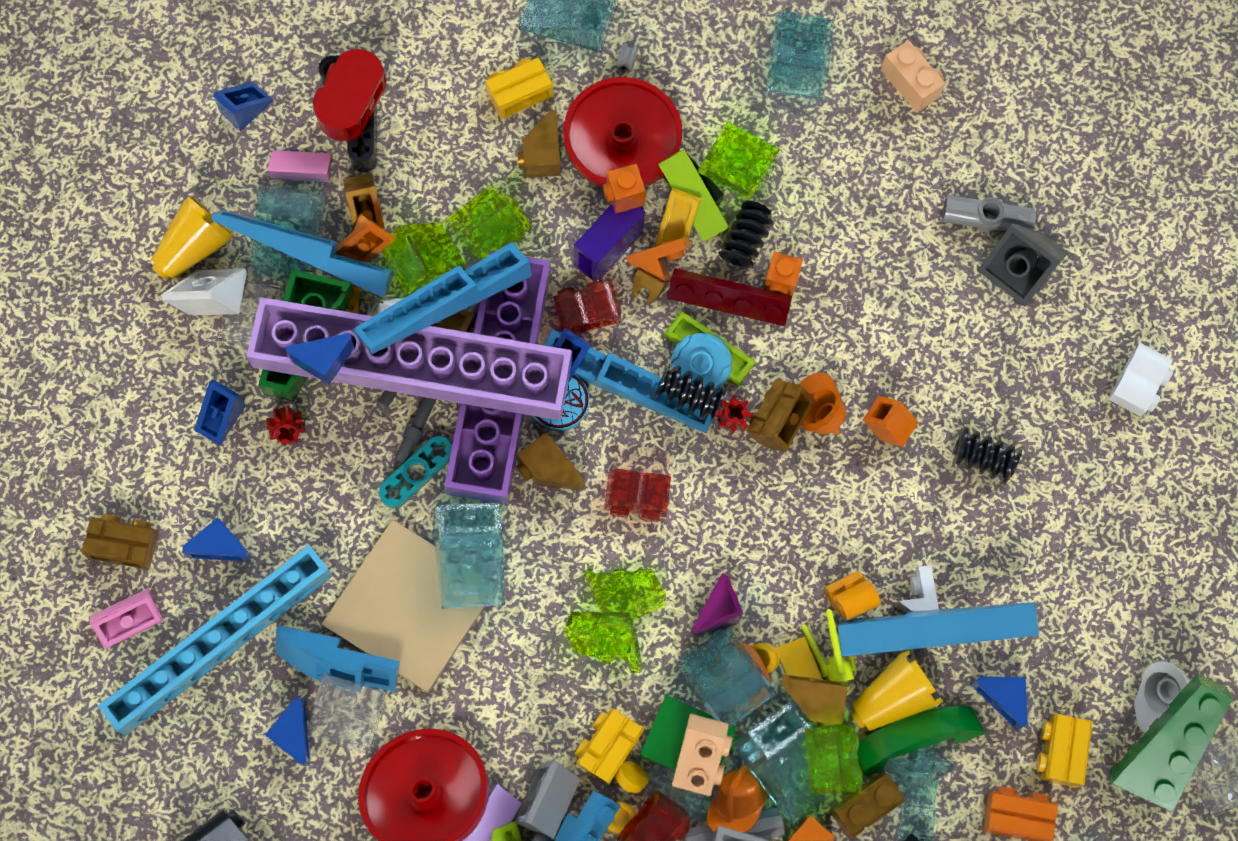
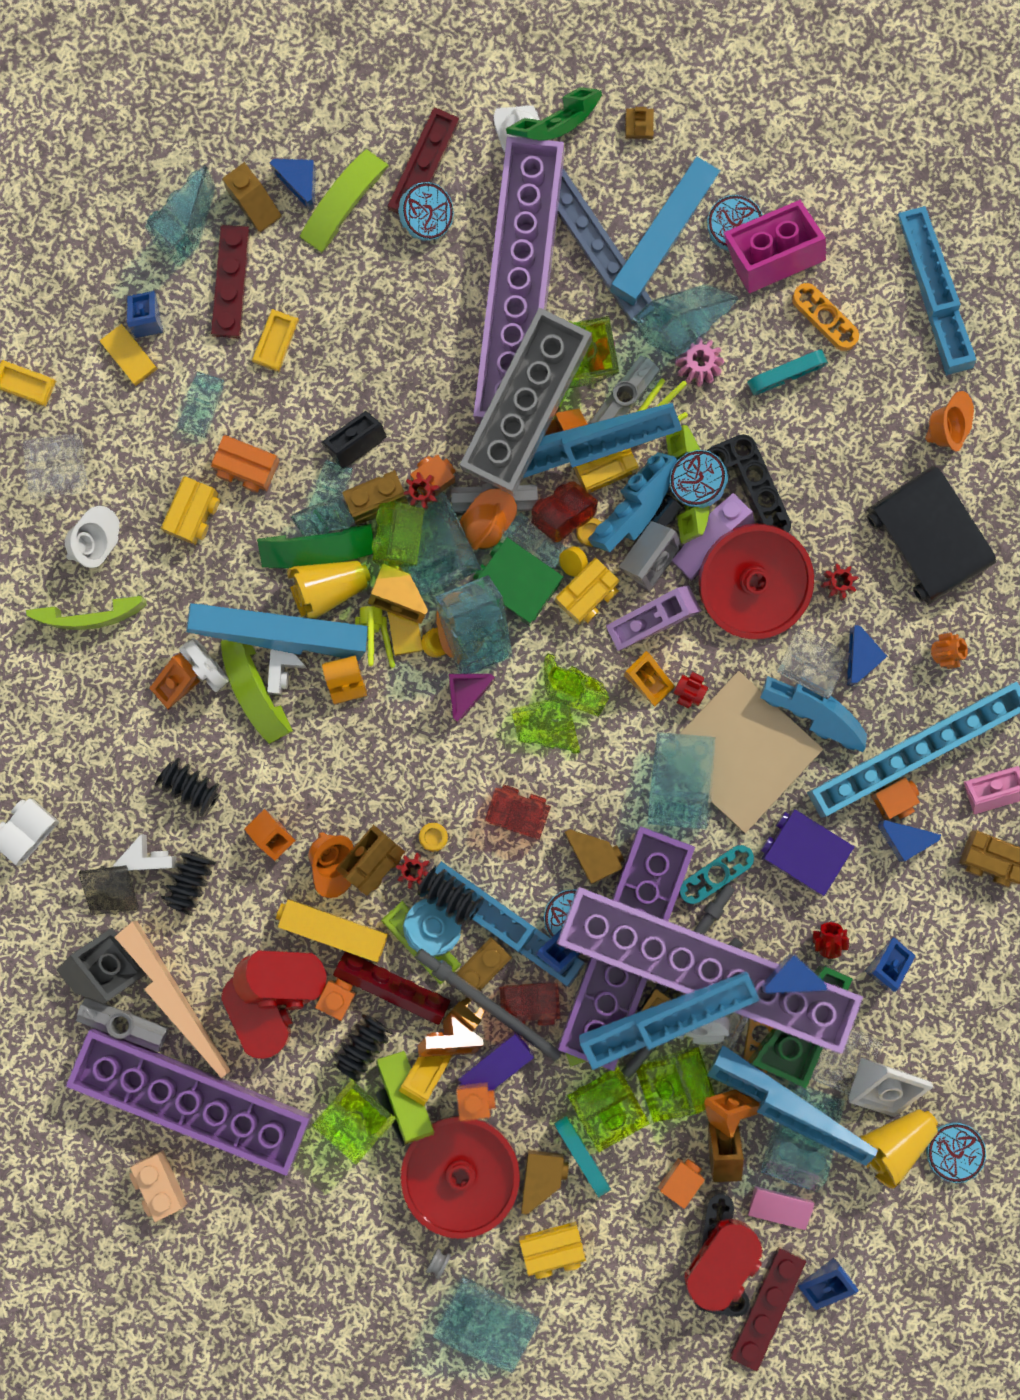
camera: 165 degrees left, 10 degrees up
(128, 246) = (956, 1152): none -> tile
(195, 758) = (949, 650): none -> orange gear
(232, 582) = (896, 799): none -> orange brick
(299, 74) = (767, 1309): none -> dark red plate
(324, 510) = (806, 852): none -> dark purple brick
(325, 803) = (831, 583): none -> red gear
(402, 167) = (682, 1182): none -> orange brick
(476, 658) = (690, 690): none -> red gear
(502, 171) = (582, 1156): none -> teal beam
(524, 663) = (649, 678): none -> light orange slope
(529, 732) = (654, 617): none -> lavender slope
(643, 331) = (484, 964): none -> pearl gold brick
(681, 311) = (443, 971): none -> dark grey bar
(701, 754) = (512, 558): light nougat brick -> none
(720, 455) = (433, 837): none -> yellow tile
(800, 55) = (264, 1233): clear light blue slope -> none
(803, 341) = (331, 930): none -> yellow brick
(826, 815) = (417, 497): none -> red gear
(844, 278) = (279, 979): none -> red brick
(858, 248) = (259, 1030): none -> red brick
(902, 154) = (189, 1101): none -> medium lavender brick
(945, 561) = (251, 692): none -> lime slope
(949, 248) = (169, 996): none -> light nougat slope
(959, 360) = (188, 881): none -> black piece
(1004, 579) = (204, 664): none -> white plate
(1006, 696) = (228, 567): blue slope -> none
(1016, 372) = (136, 857): none -> white slope
(1030, 562) = (174, 681): none -> orange slope
(1039, 337) = (108, 890): none -> clear smoke piece
(1174, 744) = (96, 491): wedge -> none
(1176, 602) = (122, 608): none -> lime slope

